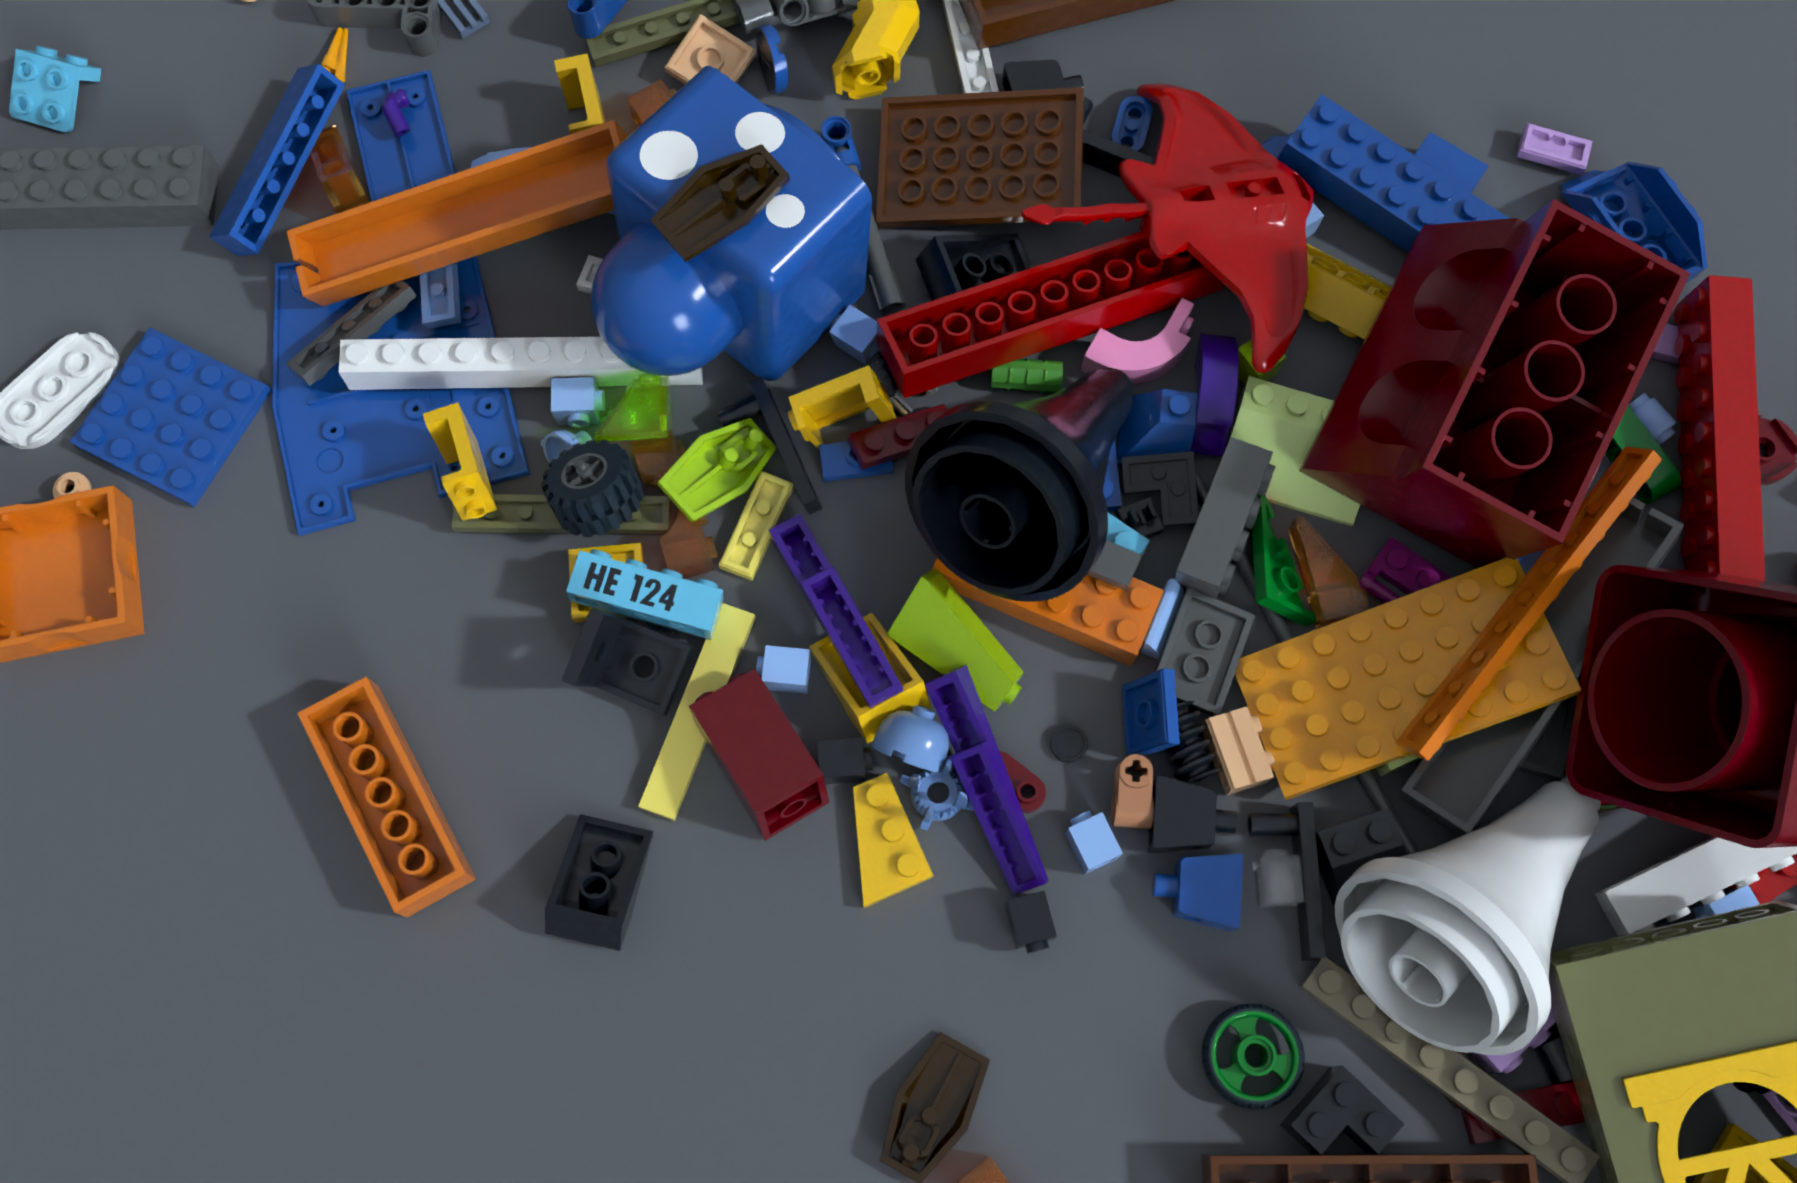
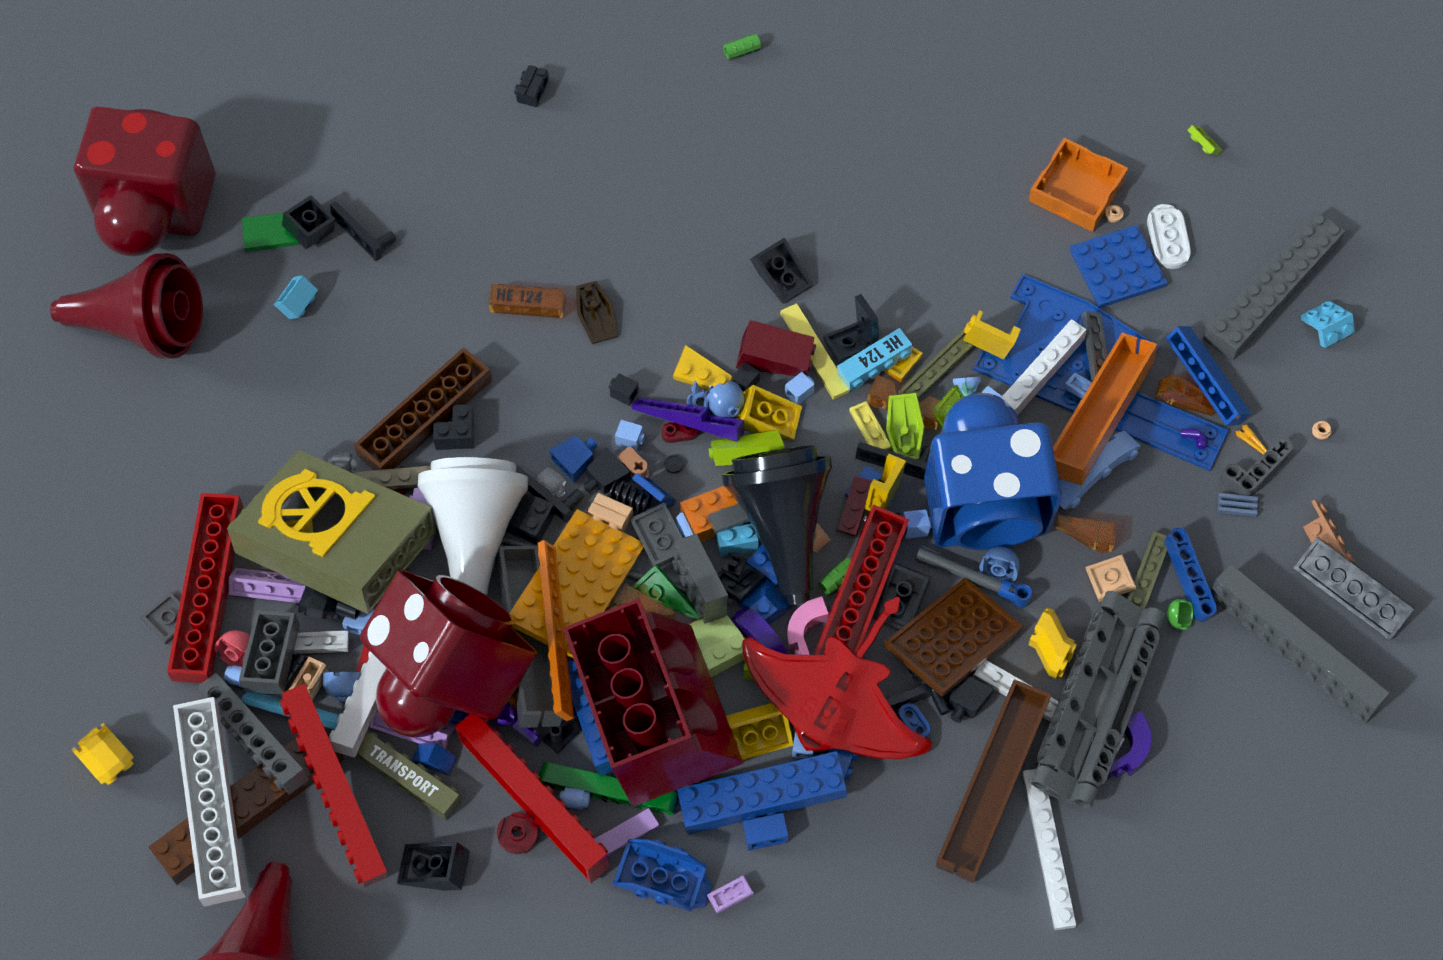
camera: 135 degrees right, 10 degrees down
(386, 797) = (880, 226): orange brick -> none
(580, 90) = (1122, 505): yellow panel -> none
(592, 488) = (935, 369): black wheel -> none
(719, 200) = (984, 441): dark brown piece -> none
(771, 61) = (1083, 594): tile -> none
(835, 611) = (805, 417): dark purple slope -> none
(1286, 1066) = (504, 428): green wheel -> none

